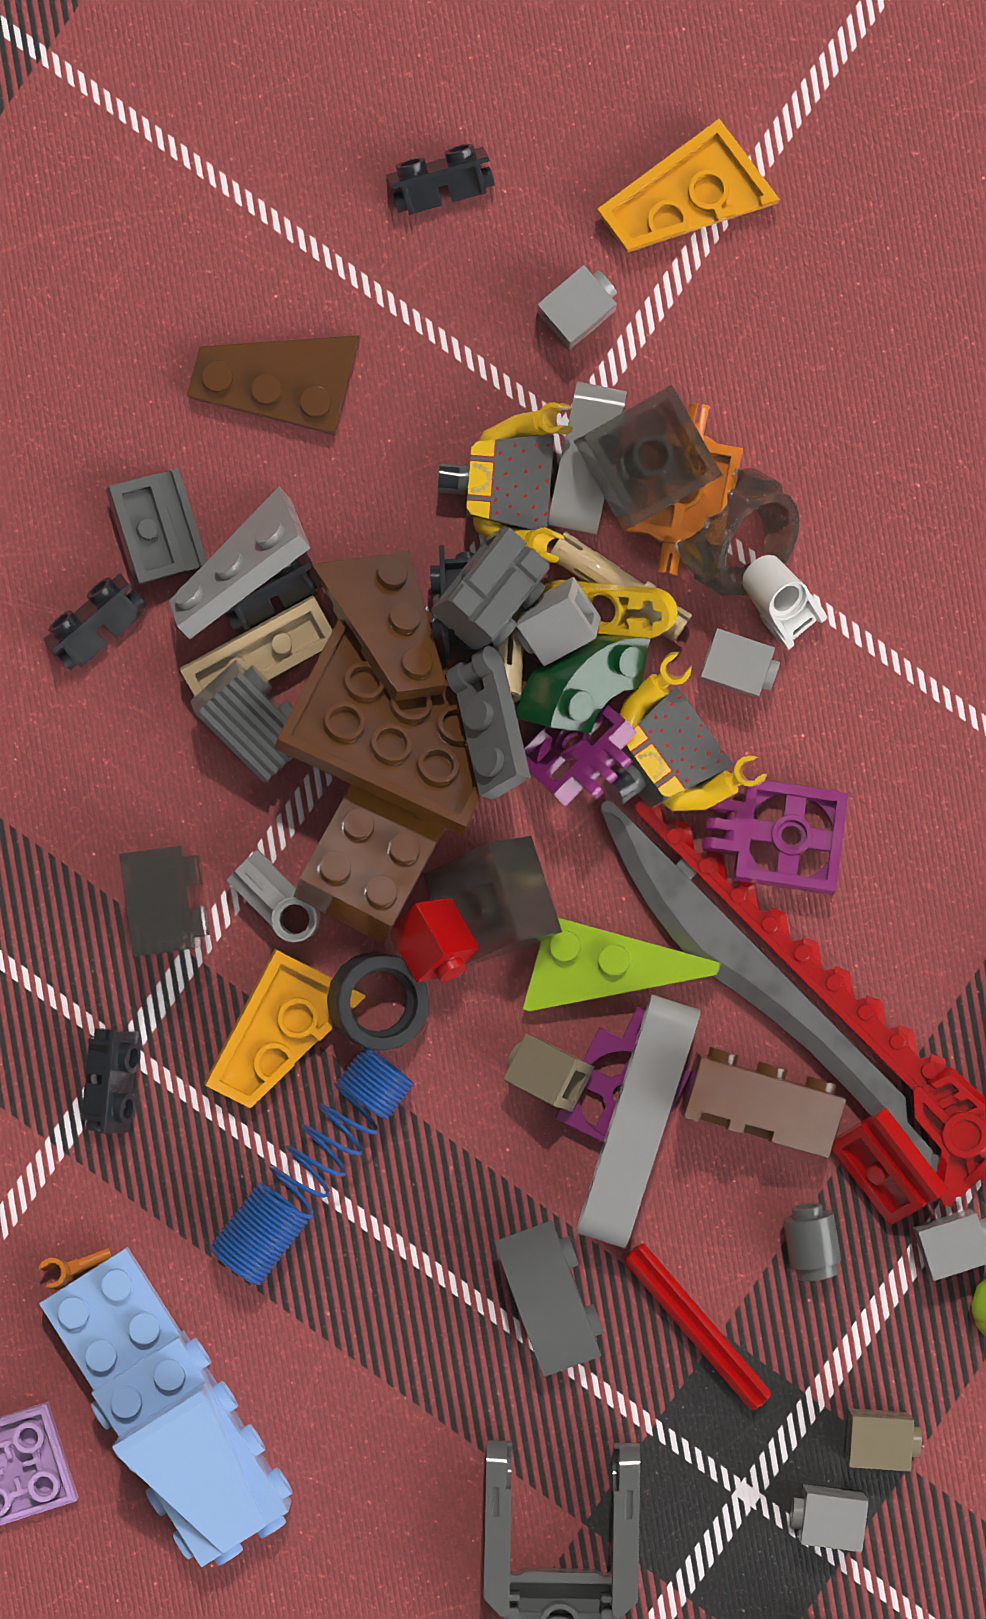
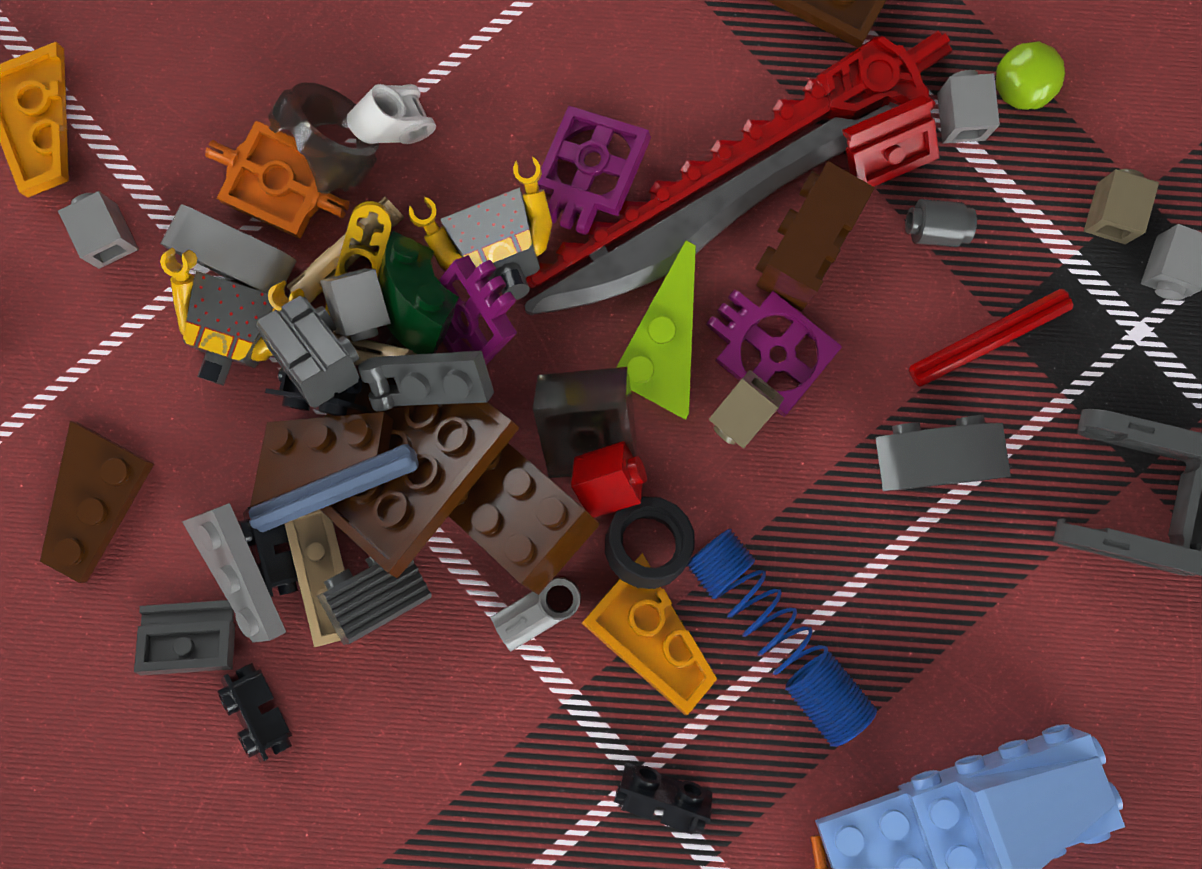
camera: 80 degrees left, 5 degrees down
(163, 900) = (511, 713): clear smoke brick -> none
(352, 652) = (334, 488): none -> sand blue axle
(638, 1121) = (807, 341): light grey beam -> none
(648, 458) = (230, 189): clear smoke brick -> none
(739, 664) = (436, 167): light grey brick -> none

